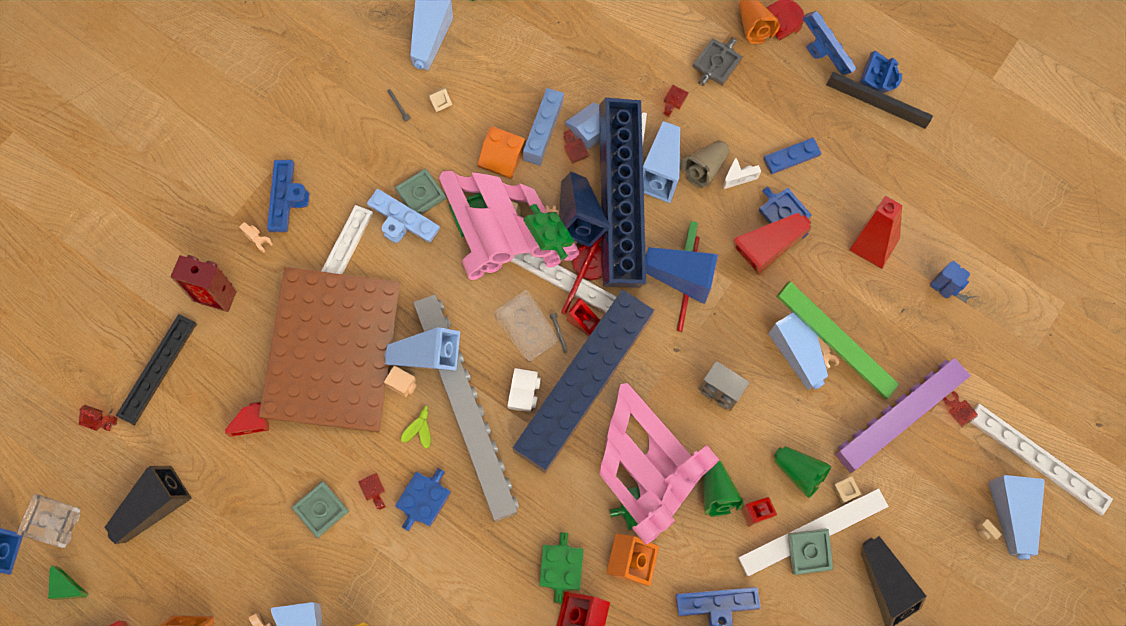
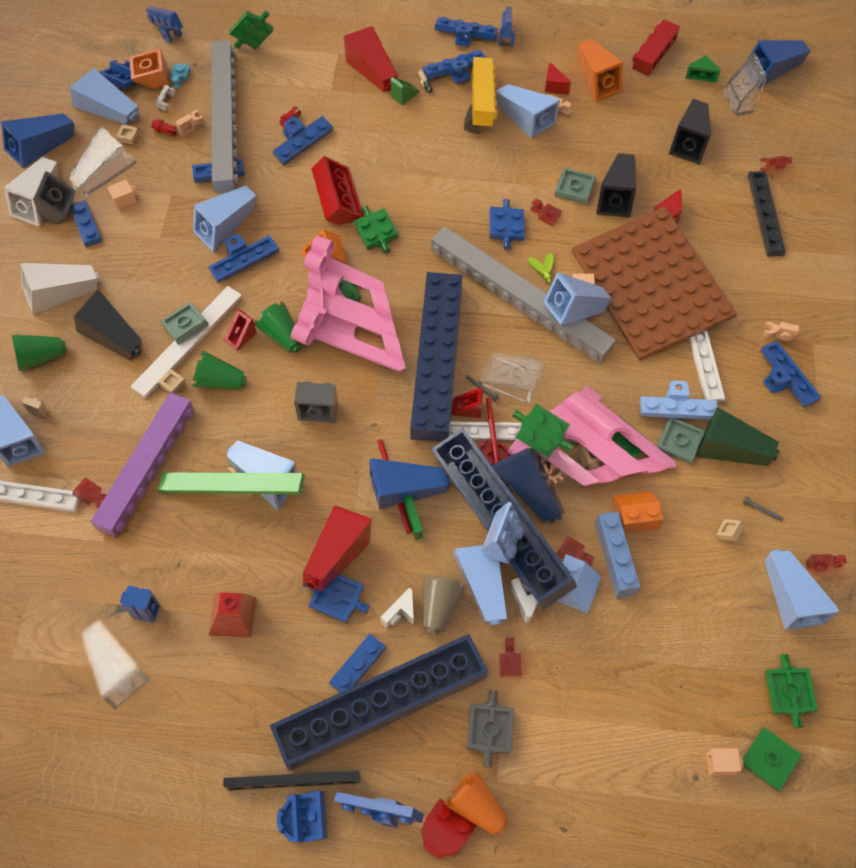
camera: 155 degrees right, 10 degrees down
(203, 282) = (783, 258): dark red brick -> none
(280, 473) = (618, 187): none -> black slope
(382, 161) = (736, 441): none -> dark green slope
(388, 41) = (821, 562): none -> clear red plate
(523, 390) = (482, 326): white brick -> none
(642, 153) = (503, 535): none -> light blue slope
(791, 115) = (378, 702): none -> dark blue brick
(971, 594) = (35, 350): none -> green cone
(987, 247) = (113, 668): none -> clear slope

